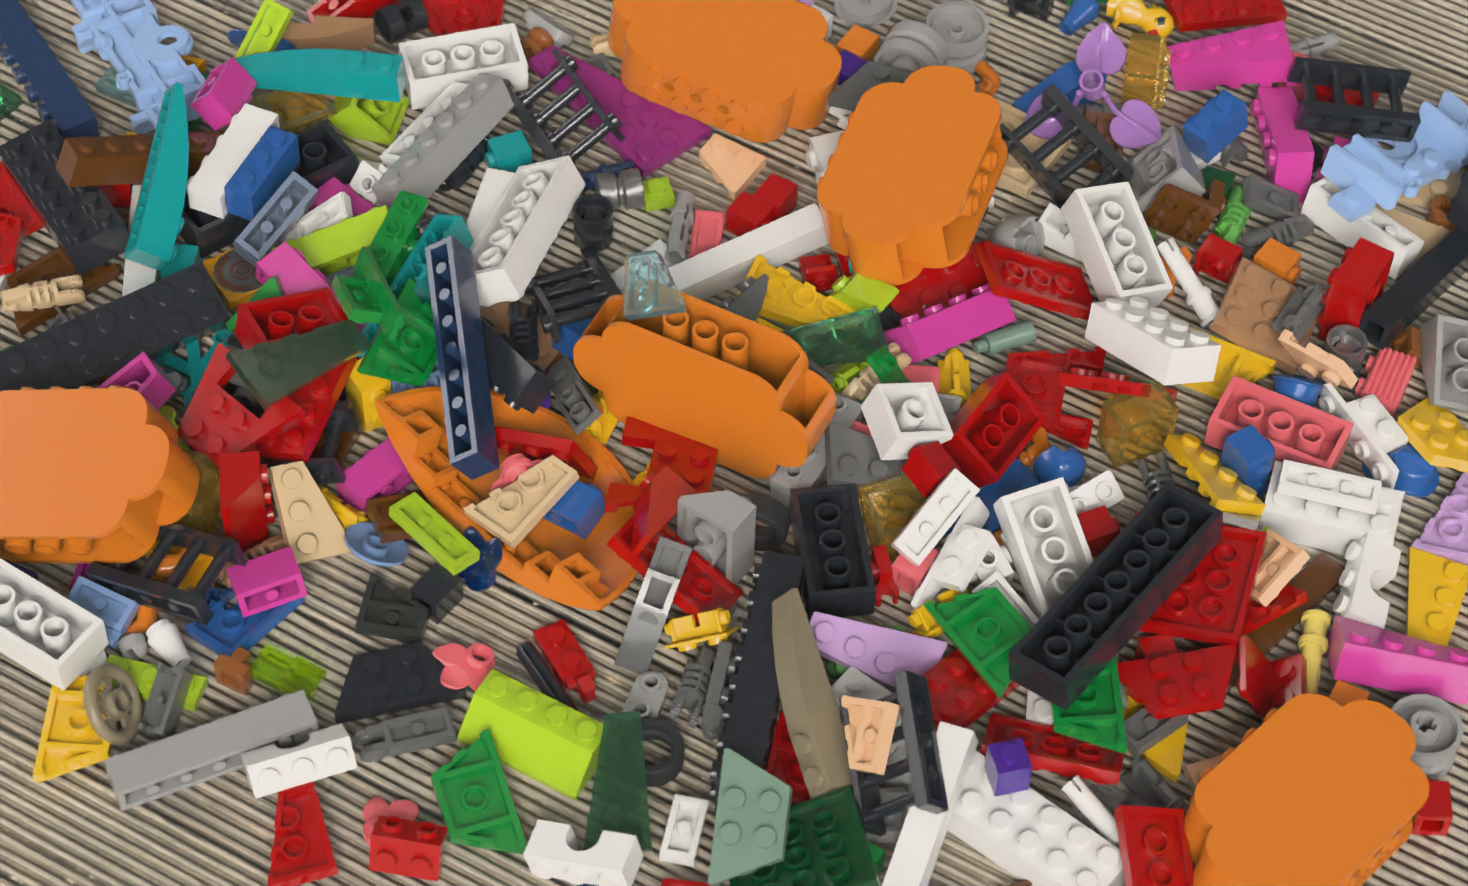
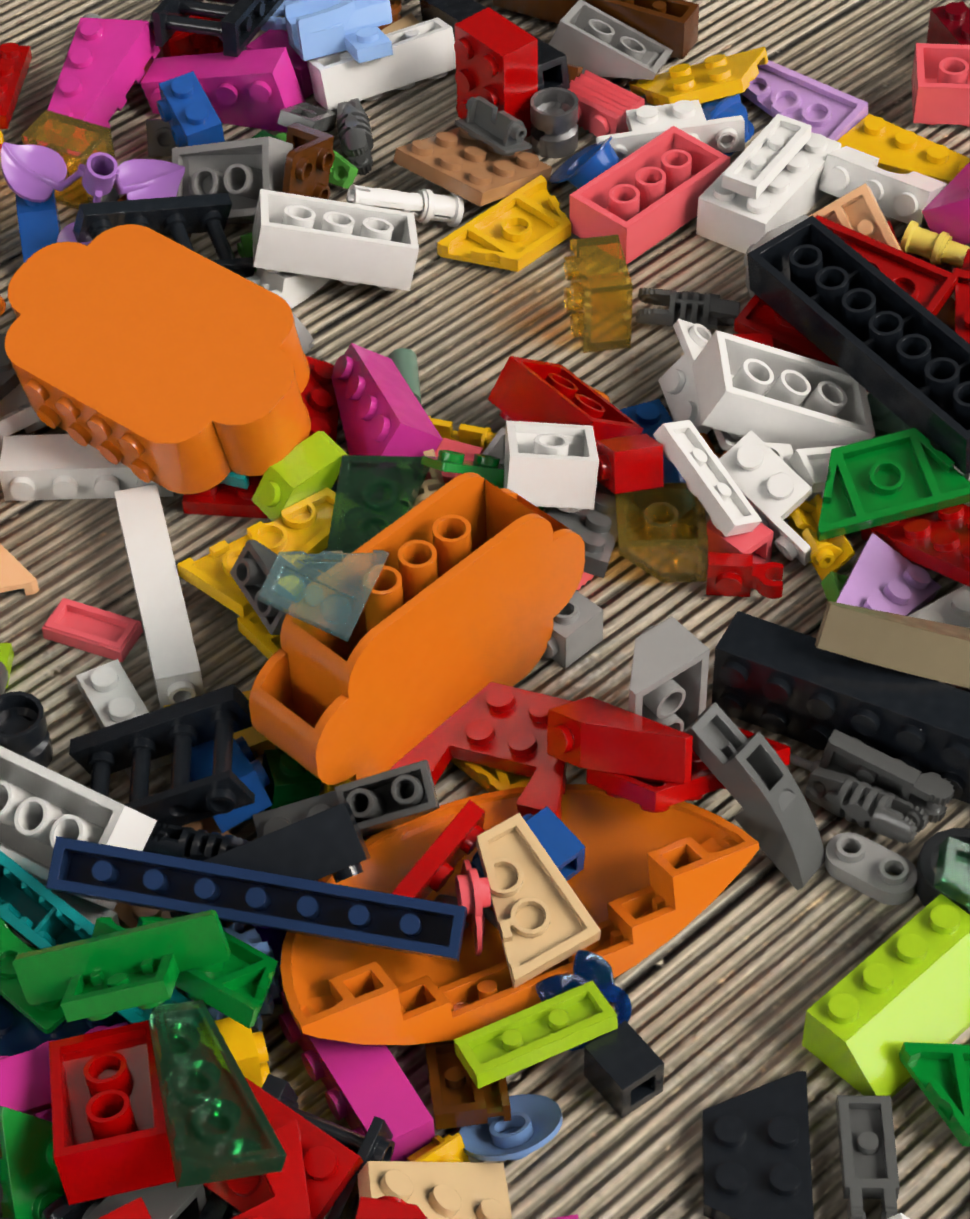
camera: 70 degrees left, 5 degrees down
(391, 613) = (638, 1139): pearl dark grey wing -> none
(464, 665) = (768, 1058): coral plate -> none
(542, 673) = (802, 972): black axle -> none
(567, 659) = (777, 940): red hinge -> none
(681, 219) = (56, 642): light grey pin -> none
(687, 634) = (801, 750): yellow hinge -> none
(748, 214) = (93, 570): red brick -> none
(774, 514) = (615, 666): black tyre -> none
(778, 193) = (74, 539): red brick -> none
(818, 271) = (209, 528): red bracket -> none
(835, 550) = (694, 590): black brick -> none
(1035, 280) = (350, 318): red plate -> none
(1038, 377) = (475, 363): red wing -> none
(1058, 464) = (639, 375): blue hair -> none
(1107, 383) = (544, 291): red wing -> none
(1152, 341) = (498, 239): white brick -> none
(1215, 480) = (700, 252): yellow wing -> none
(1217, 258) = (372, 172): red brick -> none
(1249, 457) = (691, 224): blue brick -> none
(1279, 260) = (393, 134): orange brick -> none
(1318, 363) = (573, 133): light nougat wing -> none

